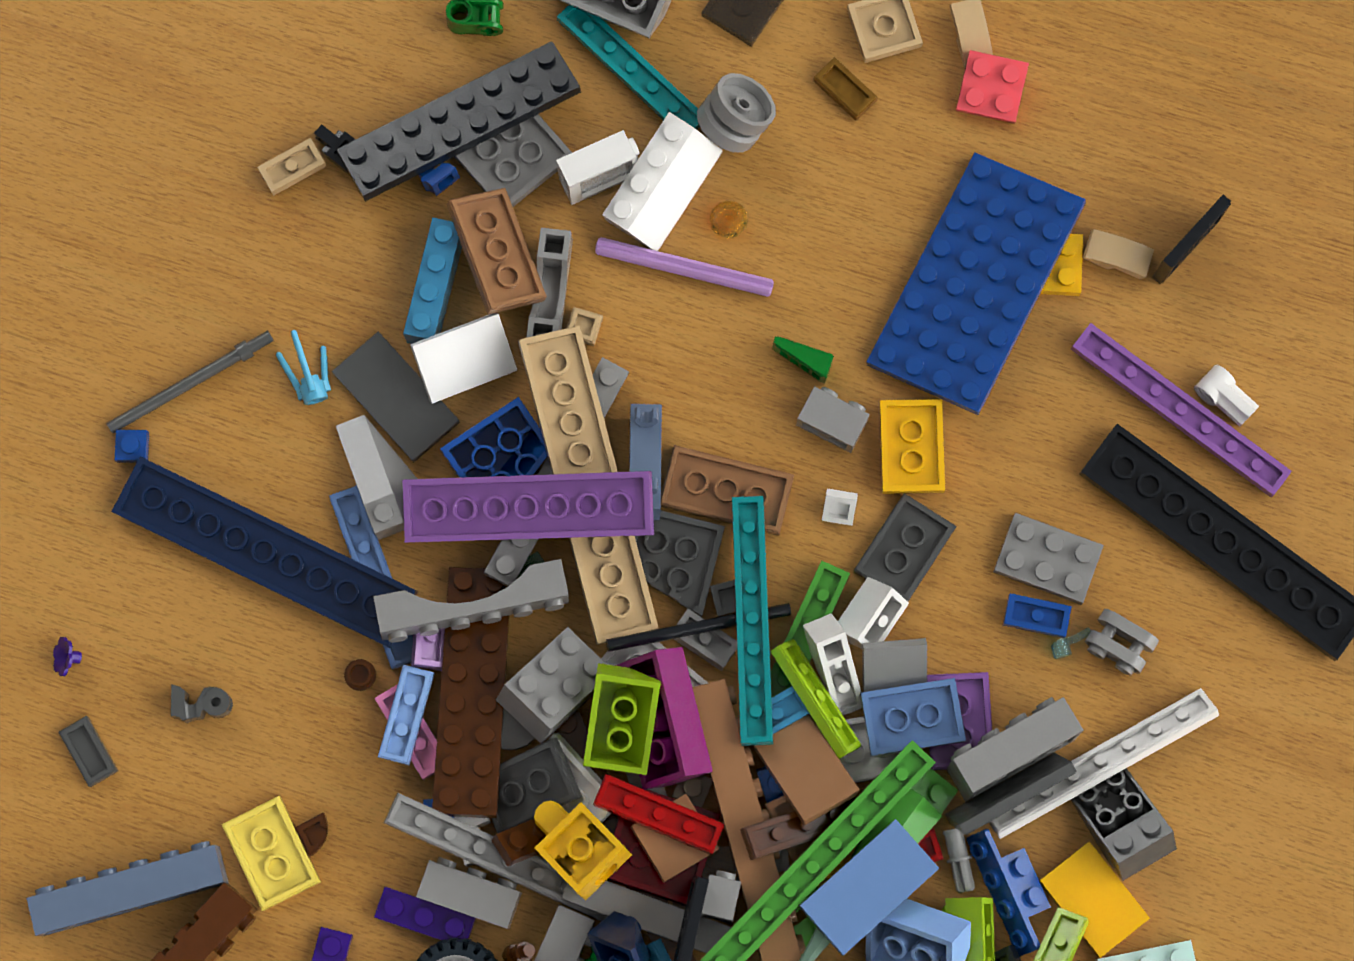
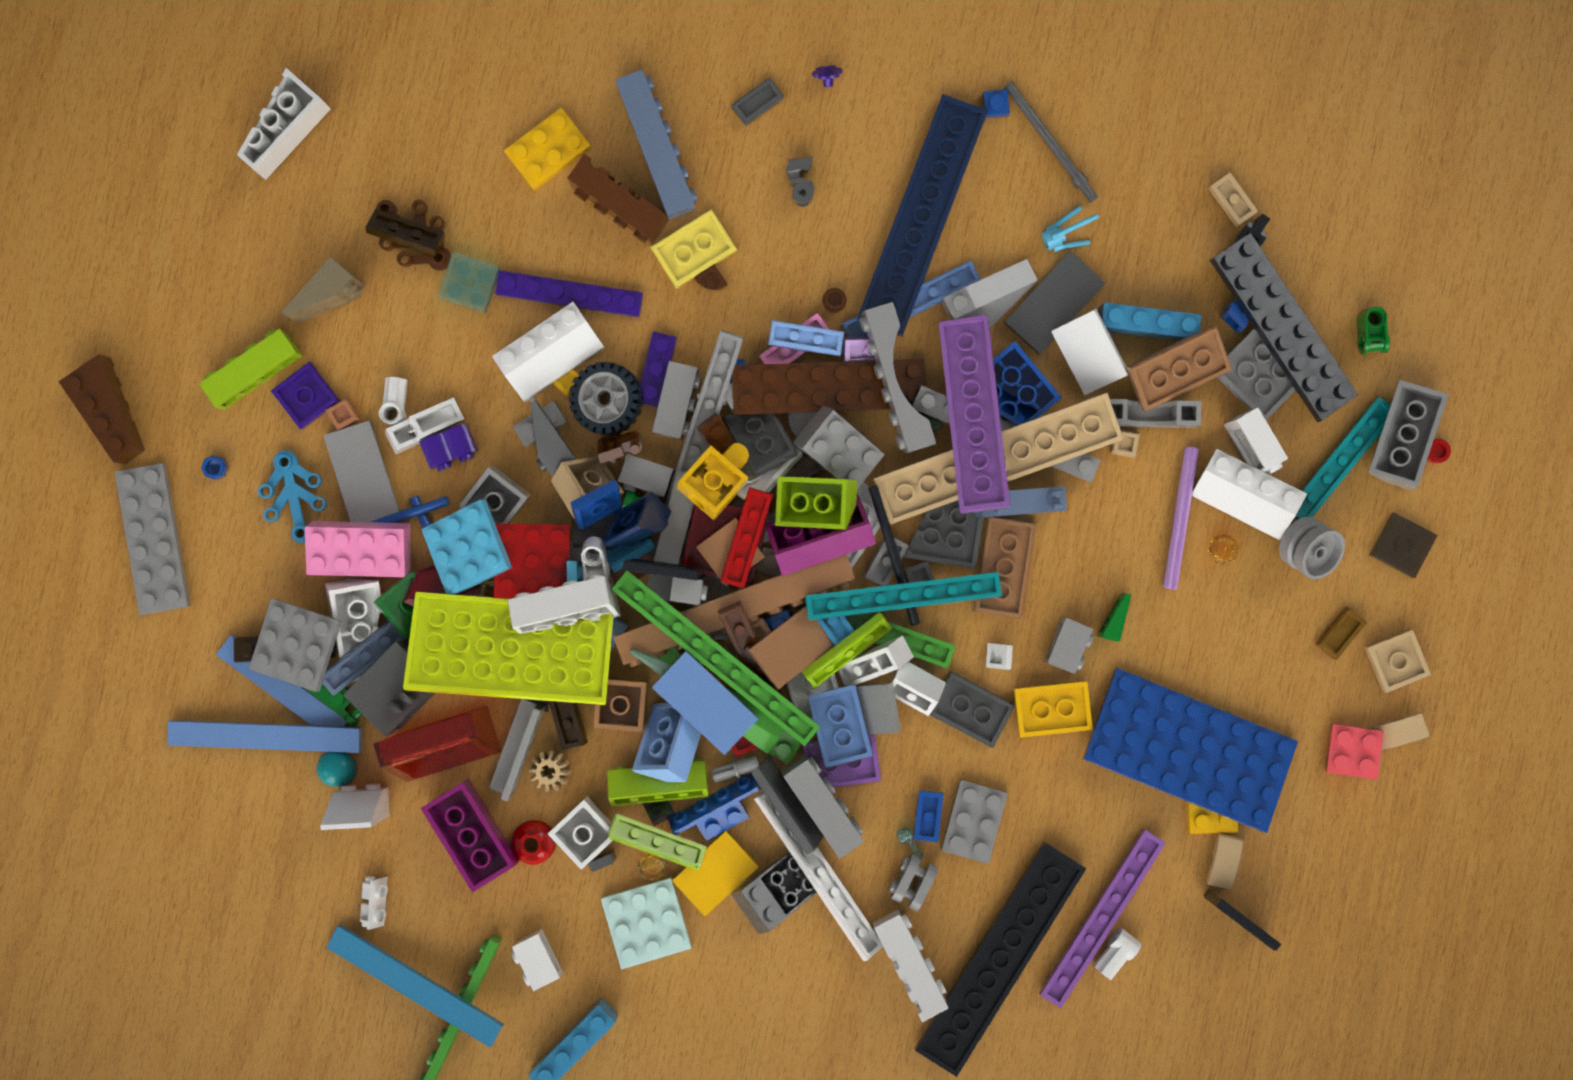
camera: 80 degrees right, 10 degrees up
(1226, 655) = (911, 965): none -> white wedge

